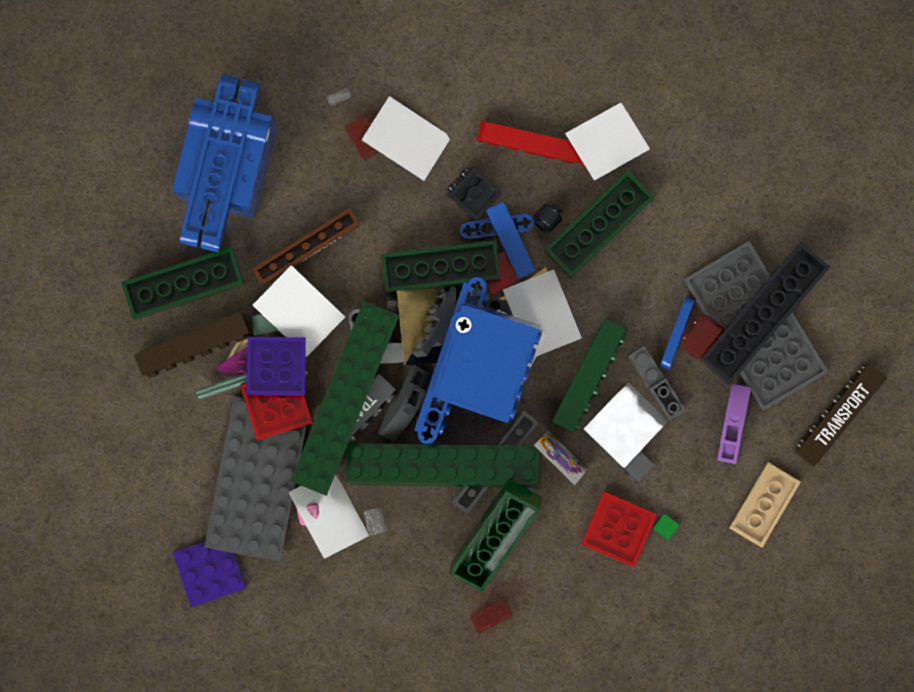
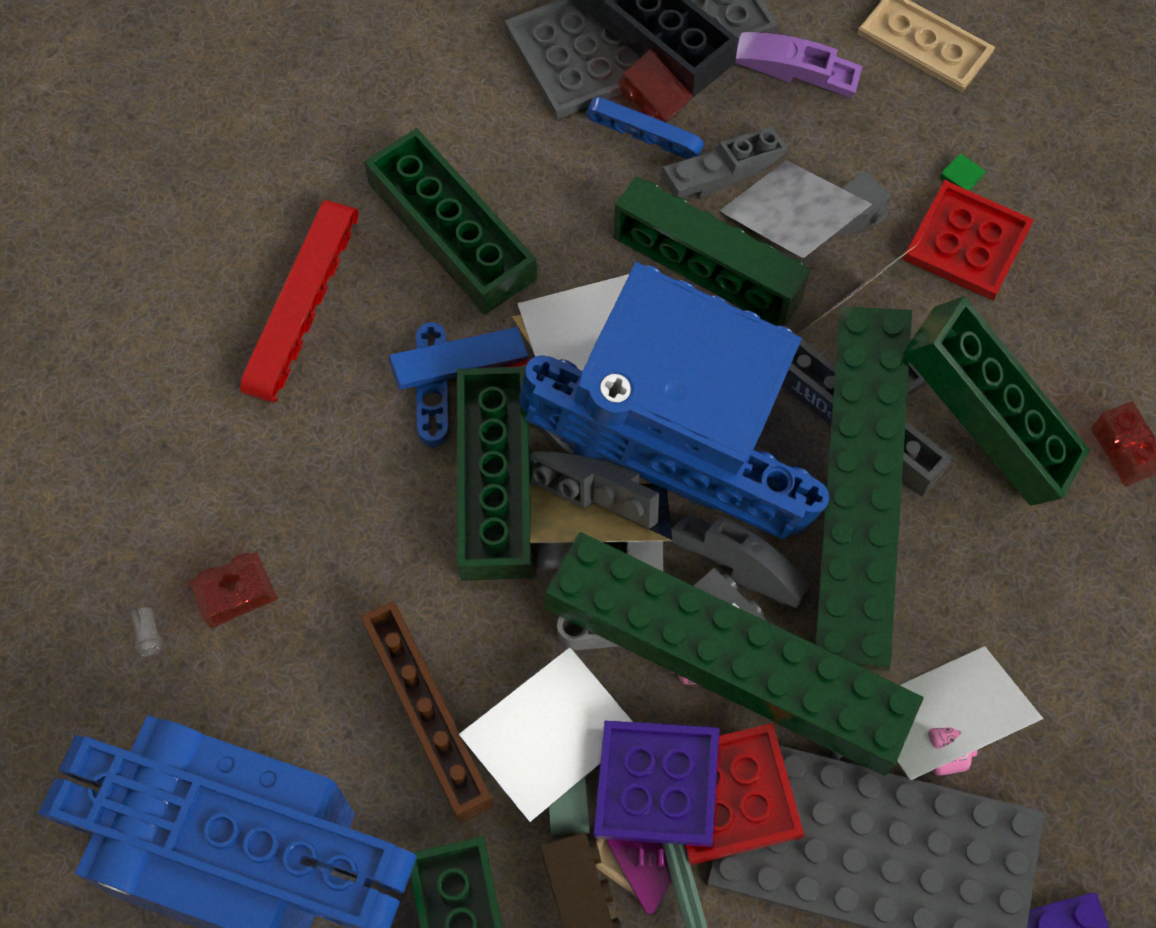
camera: 85 degrees left, 20 degrees down
(375, 521) = (960, 629): clear piece -> none
(406, 138) = (246, 515): white sticker -> none
(473, 192) = (364, 412): black plate -> none
(548, 217) = (427, 299): black head -> none
(607, 141) = (310, 198): white sticker -> none

